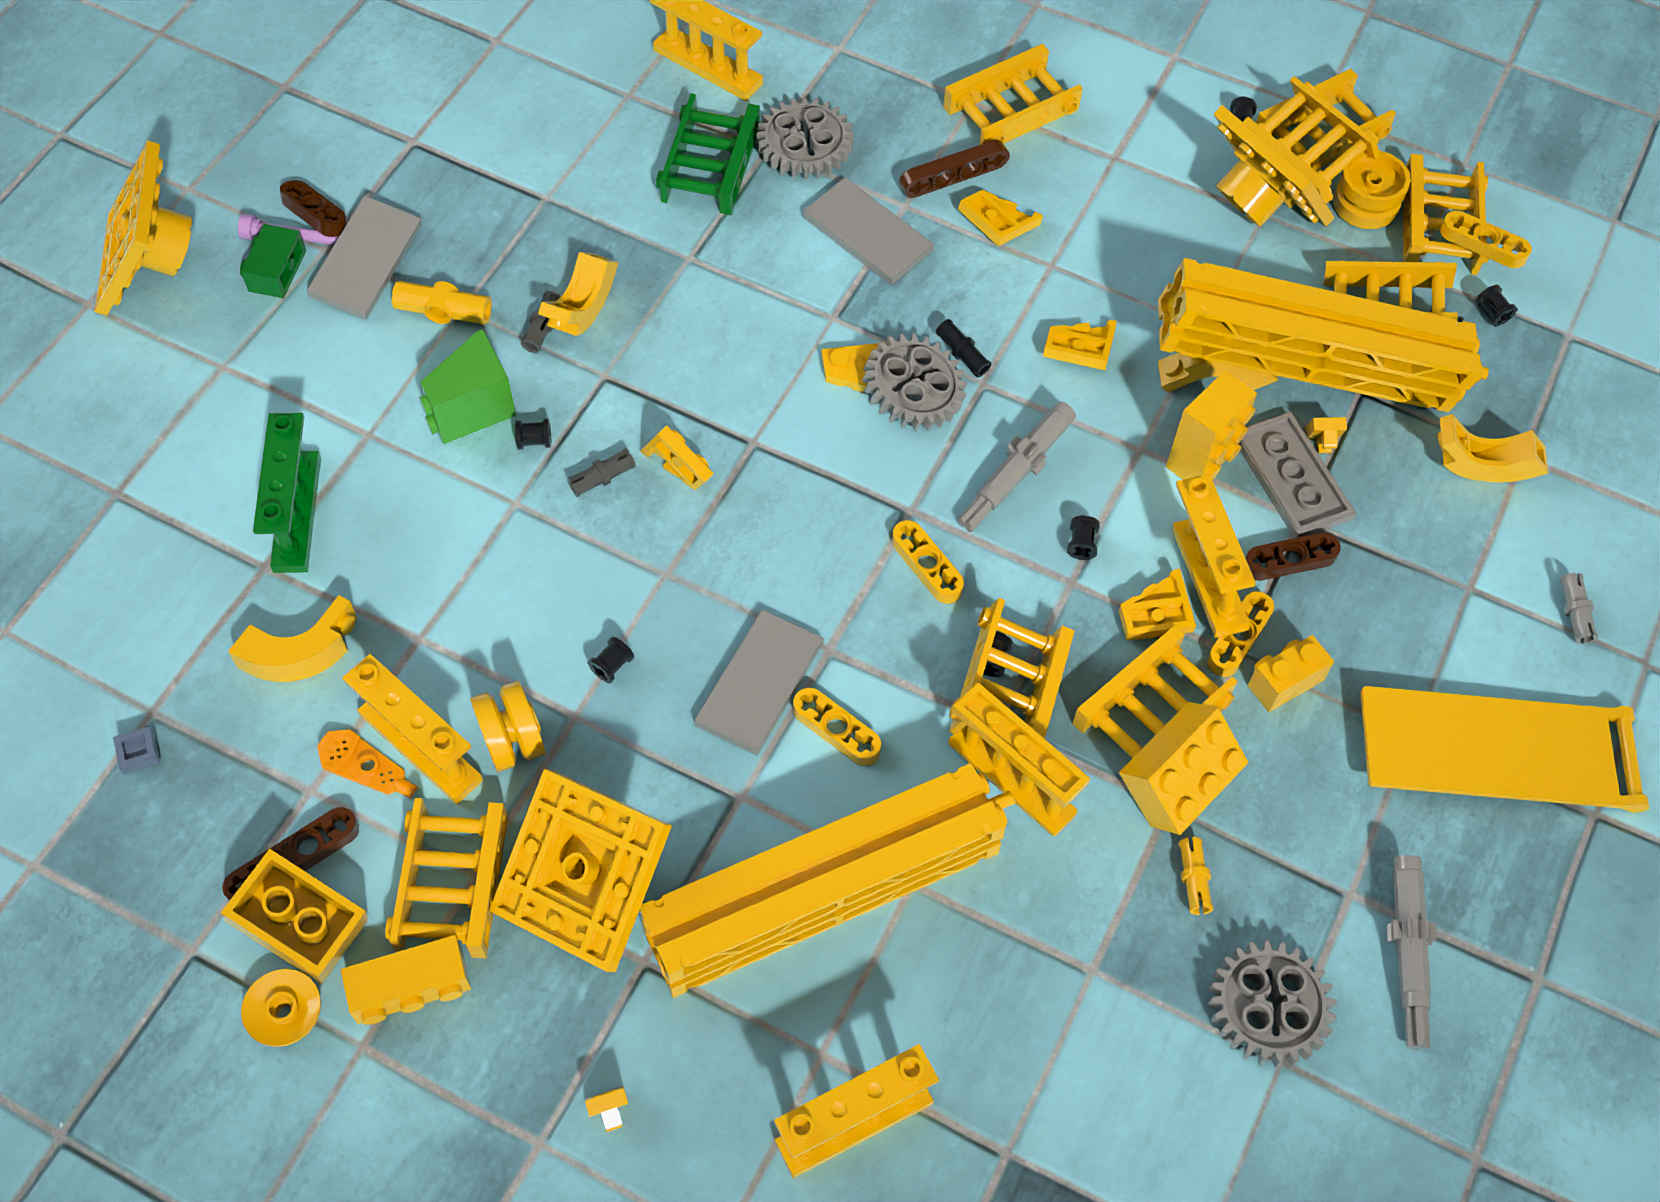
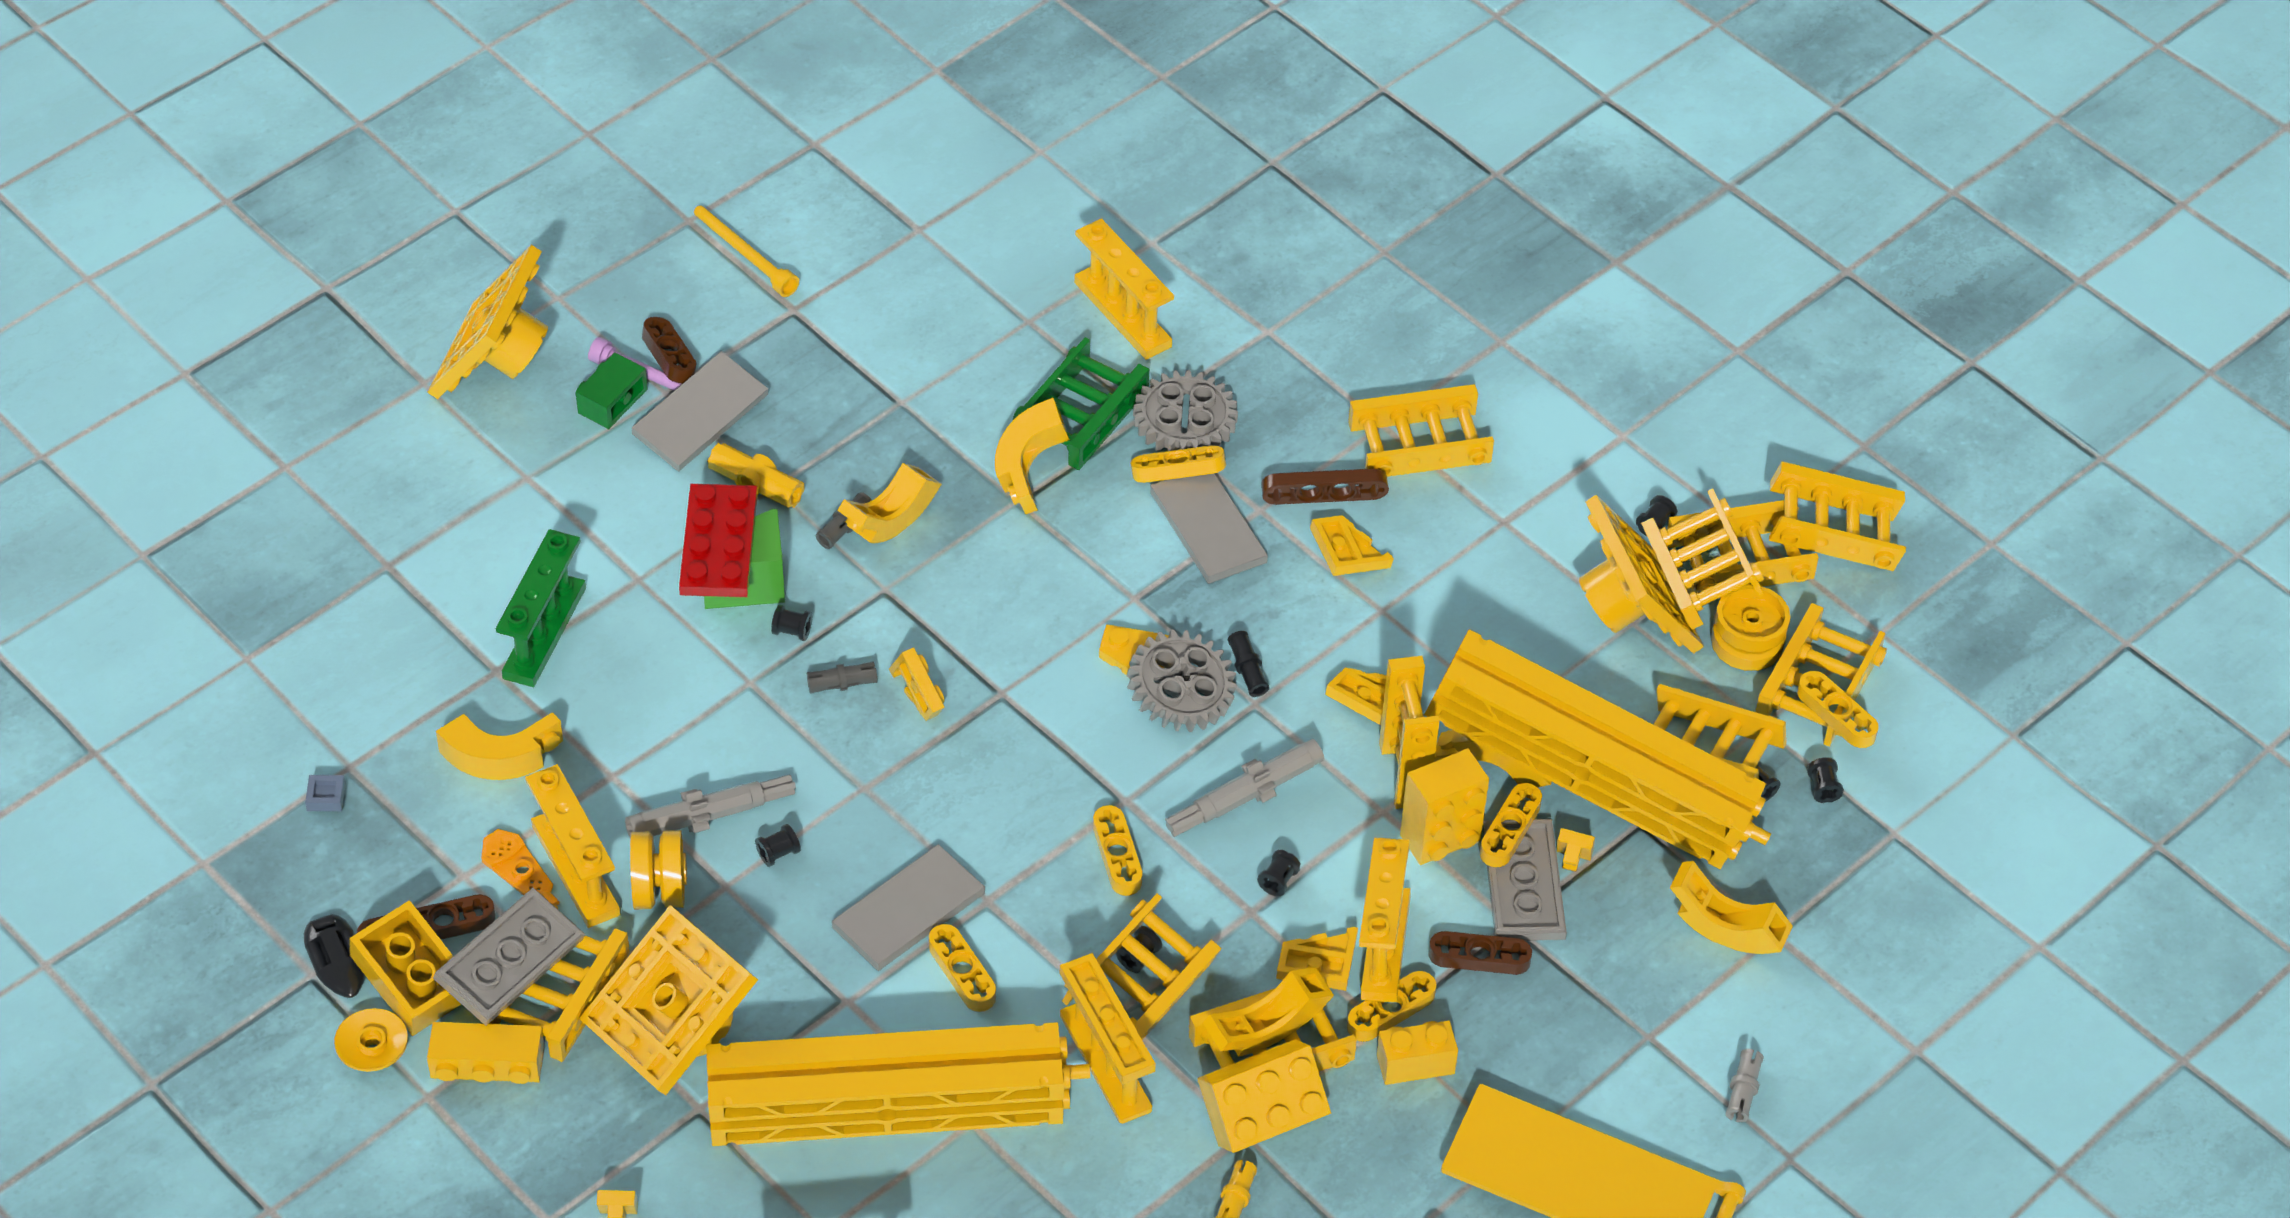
camera: 20 degrees right, 10 degrees down
(203, 923) = (329, 953): none -> black piece
(393, 116) = (782, 280): none -> yellow piece
(393, 872) = (509, 956): none -> light grey tile
(439, 376) = (718, 540): none -> red plate
(521, 648) = (698, 809): none -> light grey piece
(677, 198) = (1021, 443): none -> yellow arch
(820, 184) = (1178, 464): none -> yellow beam
(1130, 369) = (1403, 724): none -> yellow fence
(1158, 683) = (1274, 1017): none -> yellow arch
(1256, 438) = (1510, 838): none -> yellow beam
(1394, 53) = (1843, 493): none -> yellow fence

